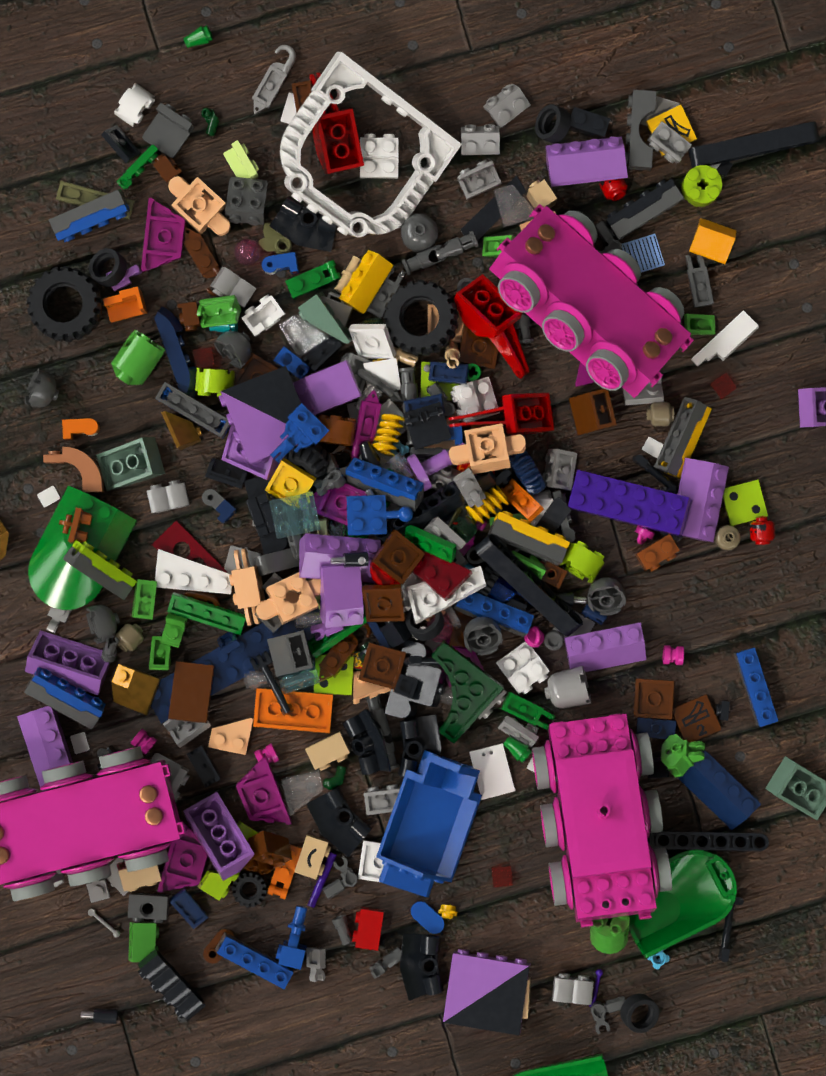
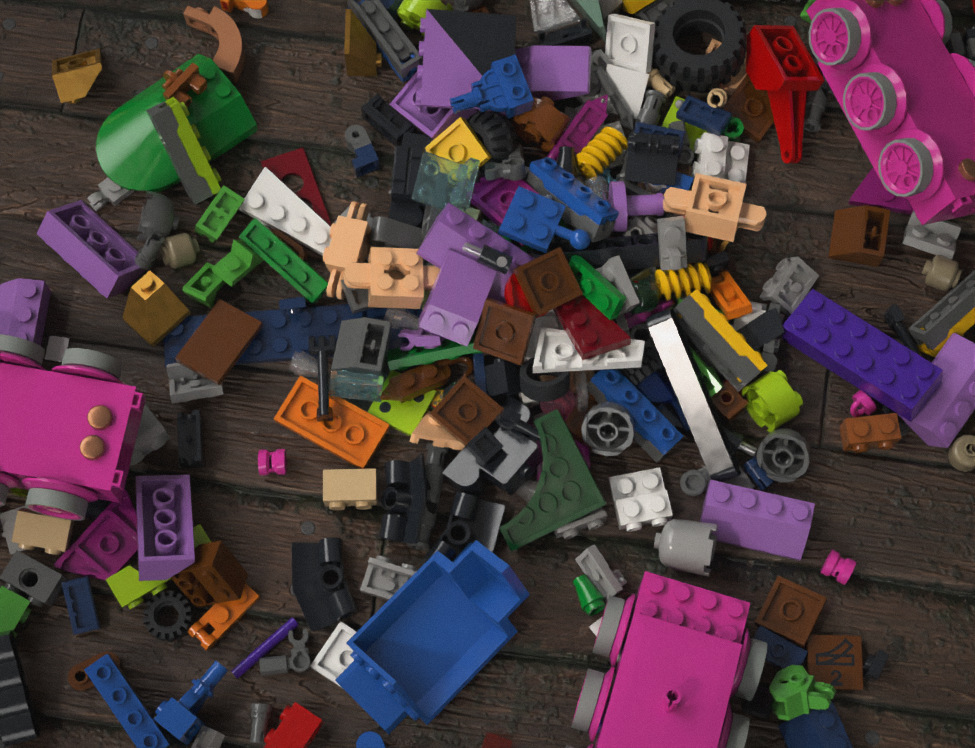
camera: 25 degrees right, 15 degrees down
(48, 496) = (170, 60): white sticker -> none
(65, 697) = (66, 281): piece -> none
(130, 463) = (283, 61): sand green slope -> none
(144, 741) = (132, 375): dark pink wheel -> none
(167, 497) = (306, 116): light grey brick -> none
(232, 737) = (242, 422): light nougat wing -> none
(262, 795) = (243, 506): magenta wing -> none
(292, 362) = (526, 33): blue leg -> none
(301, 789) = (294, 523): clear wing -> none
(311, 856) = (266, 611): tan brick -> none
(337, 780) = (343, 531): dark green arm -> none
(494, 771) = (544, 611): white container -> none
(522, 414) = (769, 186): red slope -> none
(525, 710) = (620, 550): green hinge -> none
(527, 473) = (749, 263): dark blue gear -> none
(534, 637) = (671, 467): dark pink tile -> none
(652, 447) = (913, 310): white sticker -> none
(755, 687) = (930, 654): blue piece -> none

